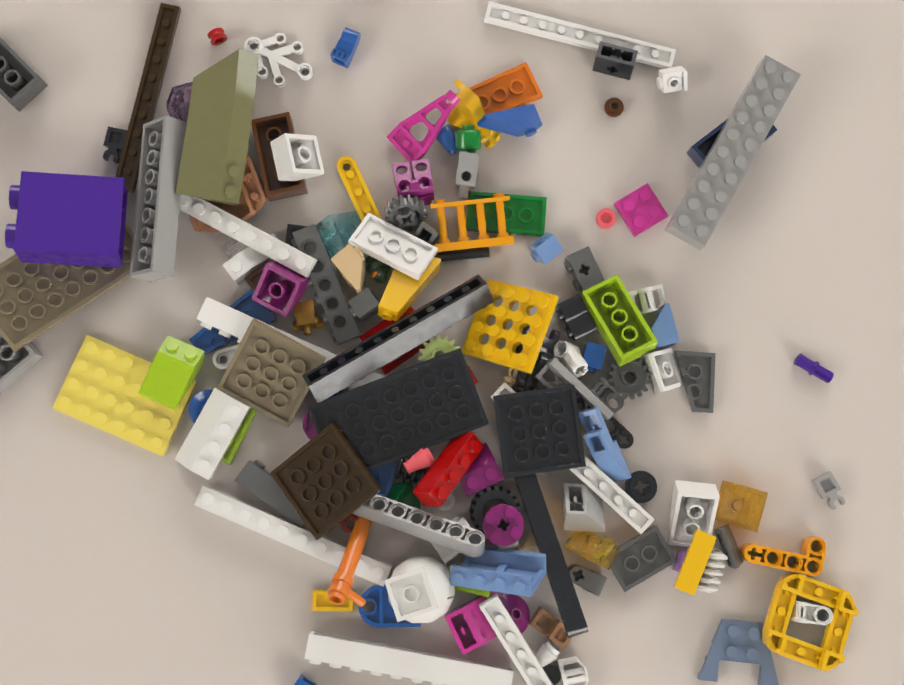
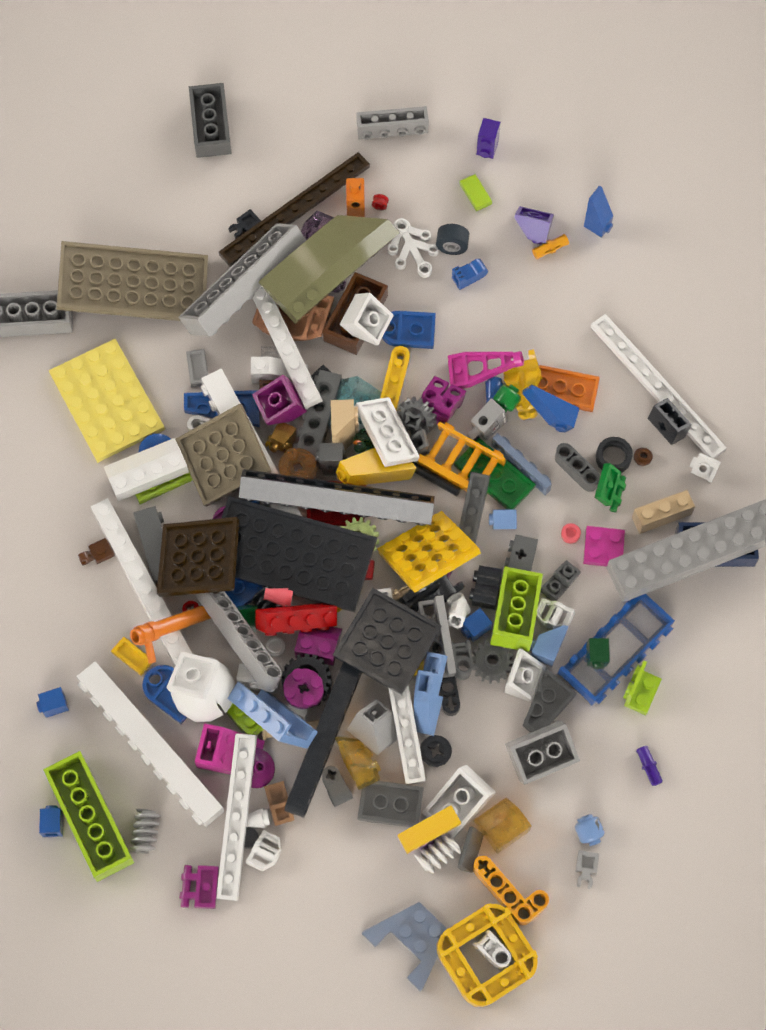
camera: 45 degrees right, 15 degrees down
(68, 219) = (169, 248): dark purple brick -> none
(172, 372) = (153, 405): lime slope -> none
(180, 306) = (197, 366): none -> light grey tile
(191, 46) = (355, 193): none -> orange torso
(231, 534) = (99, 551): none -> reddish brown plate
(309, 26) = (452, 239): none -> black wheel
(332, 328) = (299, 456): none -> clear orange plate
(338, 135) = (411, 330): none -> blue plate
(513, 186) = (517, 459): none -> sand blue plate
(514, 256) = (474, 504): none -> dark grey tile
(577, 153) = (577, 475): none -> dark grey beam
(590, 109) = (614, 442): none -> black tyre
(610, 155) = (610, 487): none -> green plate
(629, 266) = (560, 581): none -> dark grey slope
(667, 144) = (663, 511): none -> tan brick
(713, 309) = (598, 652): none -> dark green brick
(717, 292) = (630, 636): none -> clear window
(729, 425) = (542, 752): none -> light grey brick
(762, 310) = (641, 692): none -> lime bracket
(809, 457) = (589, 829): none -> medium blue head

